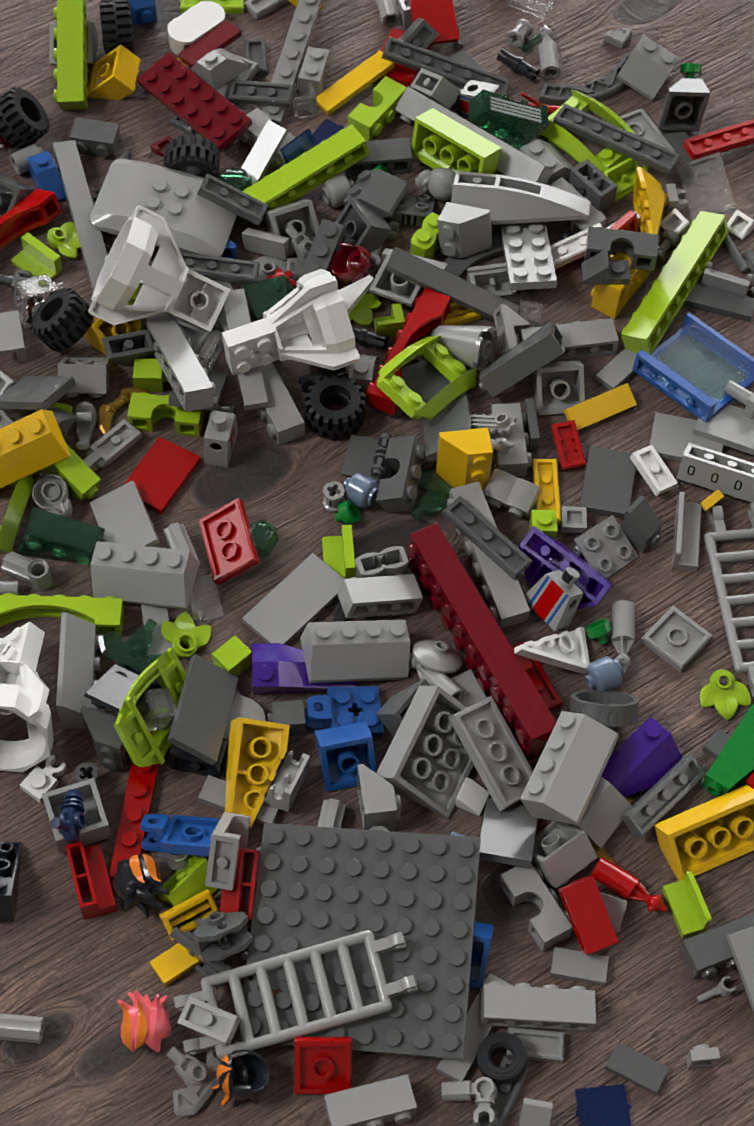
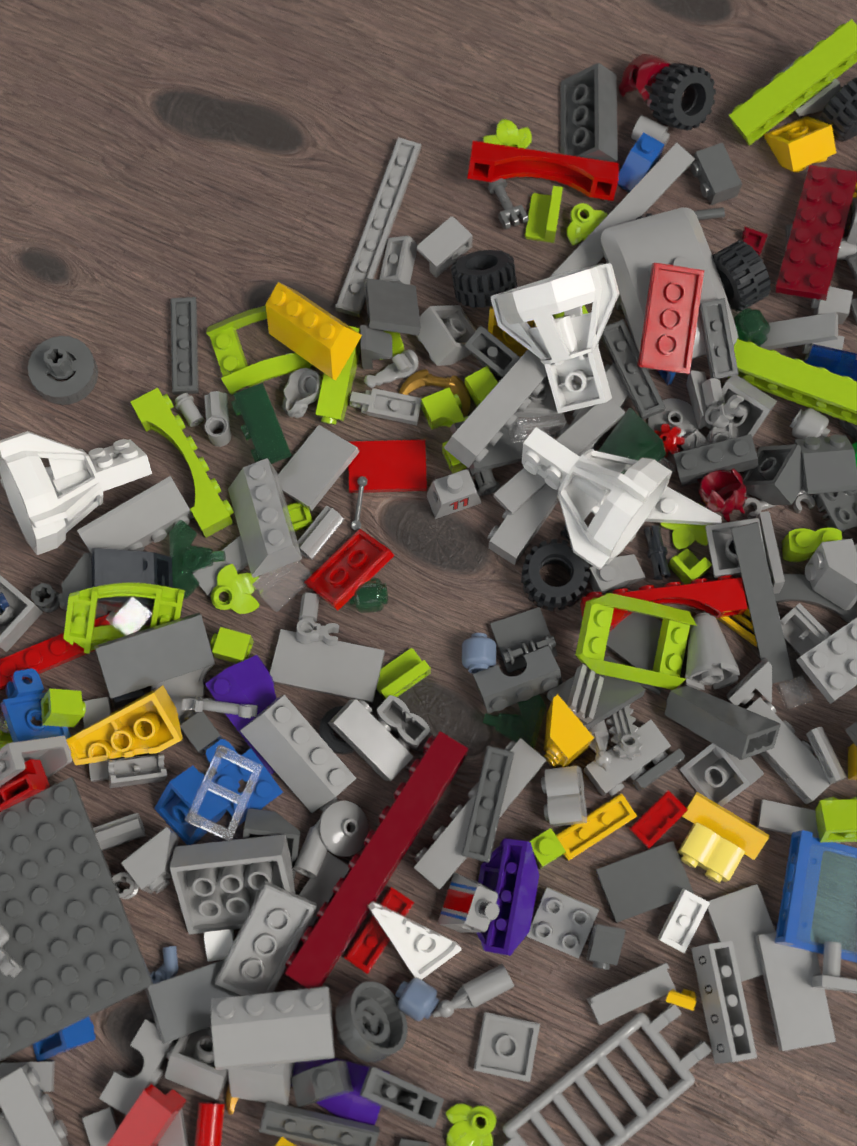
camera: 60 degrees right, 15 degrees up
(31, 294) = (500, 236): clear torso -> none
(42, 780) = (25, 562): white plate -> none
(192, 522) = (356, 524): none -> dark grey hinge
(196, 215) = (671, 318): none -> tile
(196, 807) = (62, 708): none -> lime brick
(259, 594) = (307, 628): none -> light grey bar
(281, 683) = (209, 704): none -> light grey bar
(290, 232) = (718, 412): none -> light grey bar
(330, 494) = (451, 636): light grey bush -> none
(348, 513) = (449, 656): green tile -> none
(367, 707) = (207, 784): none -> clear window
(441, 424) = (589, 696): none -> light grey tile
(573, 519) = (576, 872): light grey plate -> none
(589, 311) = (826, 755): none -> light grey slope
(599, 630) = (466, 965): green tile -> none
(614, 426) = (710, 852): none -> light yellow brick
(631, 765) = (321, 1083): none -> dark grey slope
(679, 715) = (401, 1098): none -> dark grey slope

